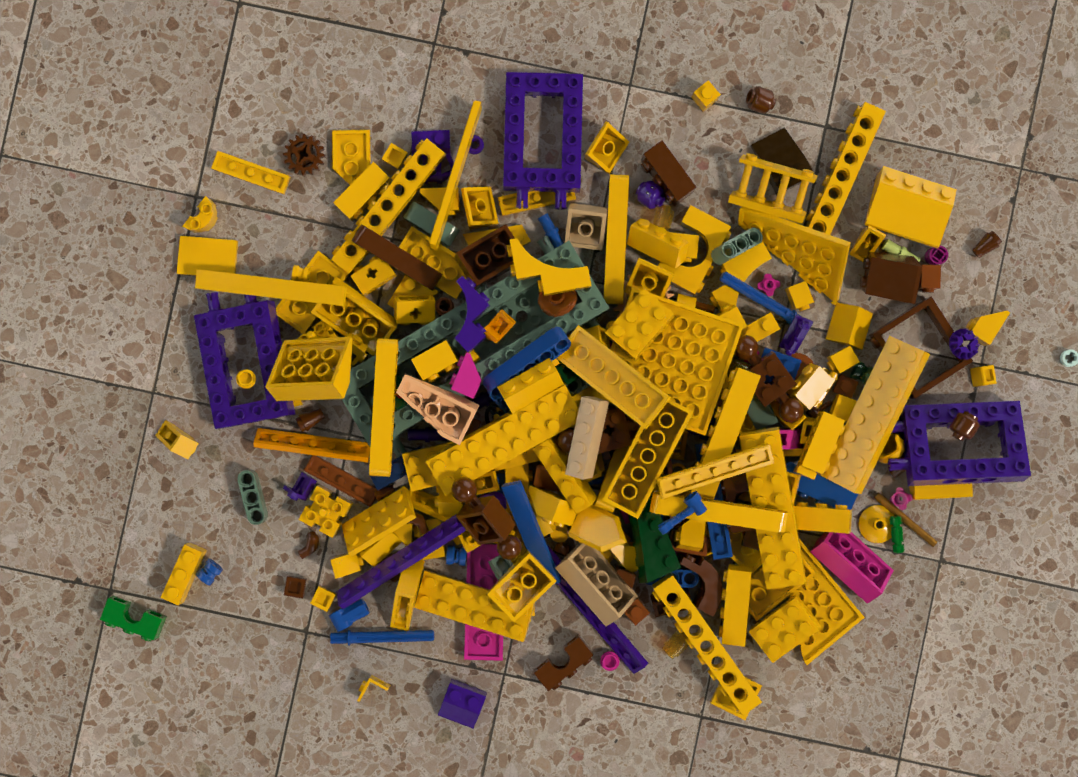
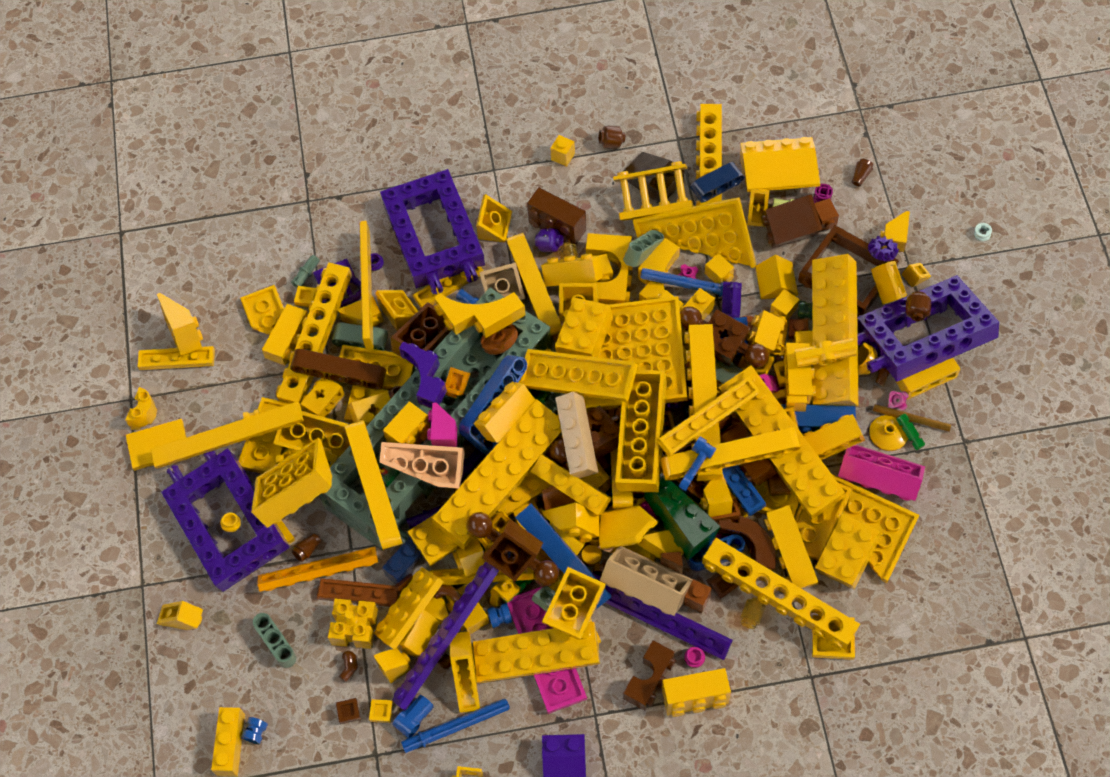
camera: 15 degrees left, 25 degrees down
(264, 153) = (181, 325): none -> yellow slope
(302, 487) = (321, 613): dark purple bracket -> none
(307, 148) = (223, 326): reddish brown gear -> none
(404, 128) = (305, 271): none -> sand green axle
(596, 698) = (696, 692): none -> yellow brick
(839, 204) = (717, 182): none -> dark blue beam
(854, 442) = (825, 352): none -> yellow piece
(951, 383) = (888, 282): none -> yellow slope

